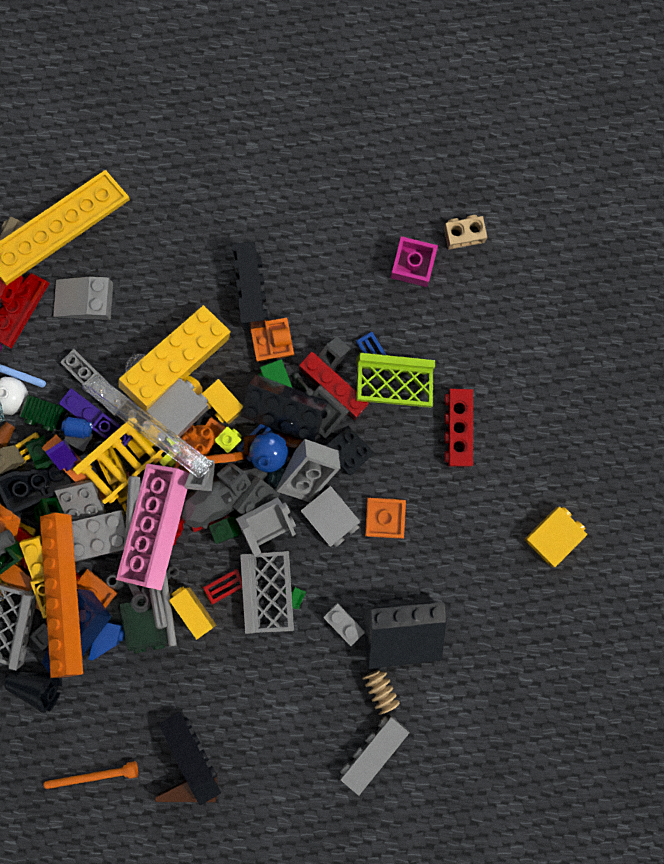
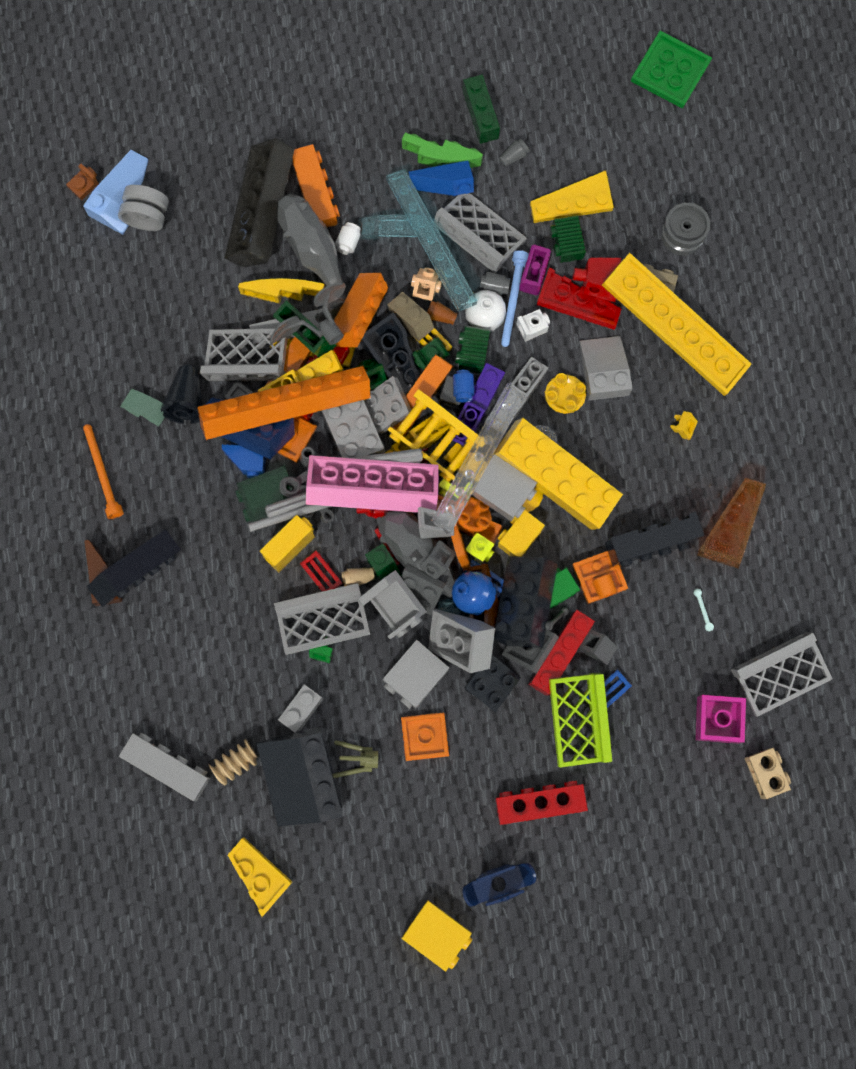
camera: 80 degrees right, 5 degrees down
(34, 359) = (532, 330): none -> white brick
(36, 727) = (143, 405): none -> sand green slope
(62, 456) = (430, 376): dark purple slope -> none
(100, 338) = (565, 393): none -> yellow dish
(151, 238) = (686, 425): none -> yellow tile
(233, 554) = (357, 575): none -> tan cone
(253, 217) = (731, 533): none -> clear orange wedge
(332, 255) = (709, 626): none -> light aqua hinge
(367, 202) = (774, 656): none -> light grey fence
(396, 570) = (368, 759): none -> olive plant
(480, 683) = (260, 875): none -> yellow wing
(518, 462) = (514, 876): none -> dark blue piece

